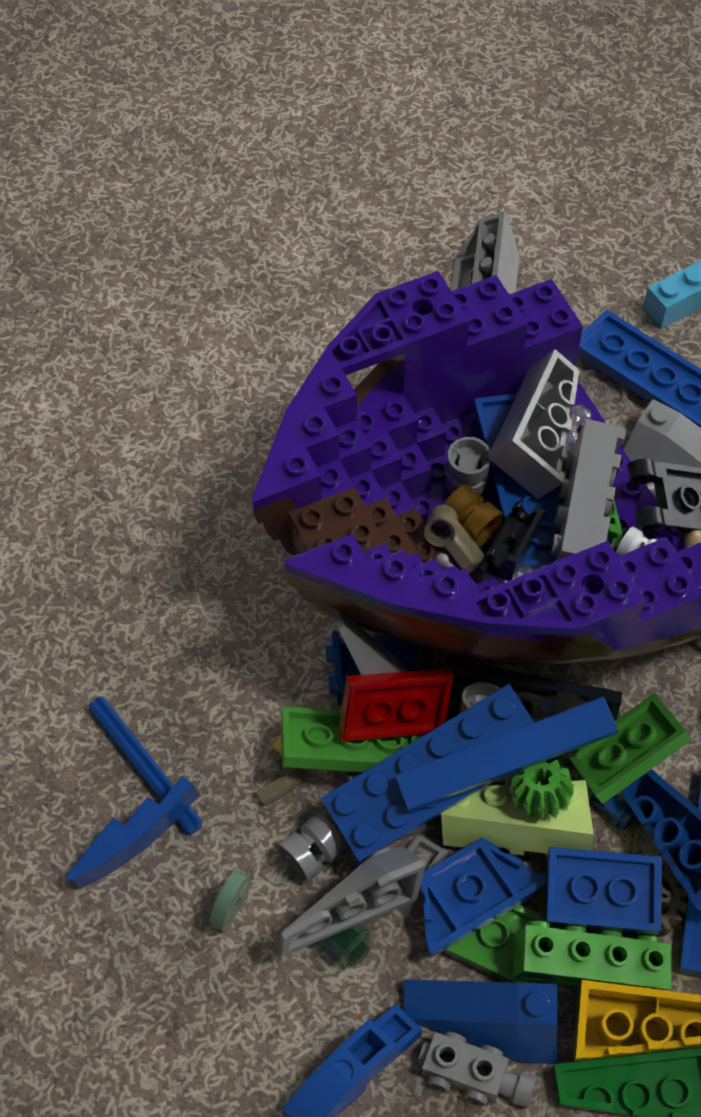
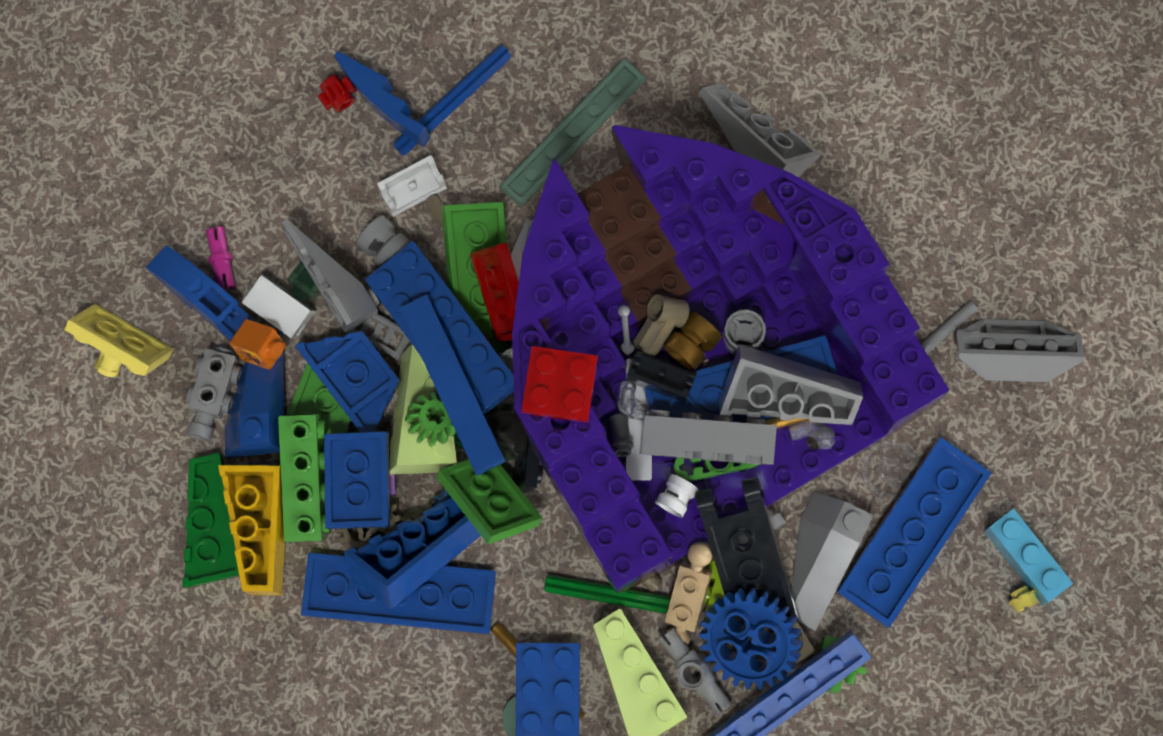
camera: 85 degrees right, 20 degrees up
(116, 887) = (337, 93): none -> red gear
(205, 646) = (573, 132): none -> sand green tile
(230, 900) = (330, 183): sand green piece -> none
(232, 471) = (754, 134): none -> light grey wedge
(243, 815) = (411, 186): none -> white hinge
(302, 1048) = (220, 257): none -> dark pink pin
(374, 979) = (278, 306): none -> white hinge
(425, 998) = (258, 344): none -> orange brick
(555, 573) = (559, 384): none -> red plate

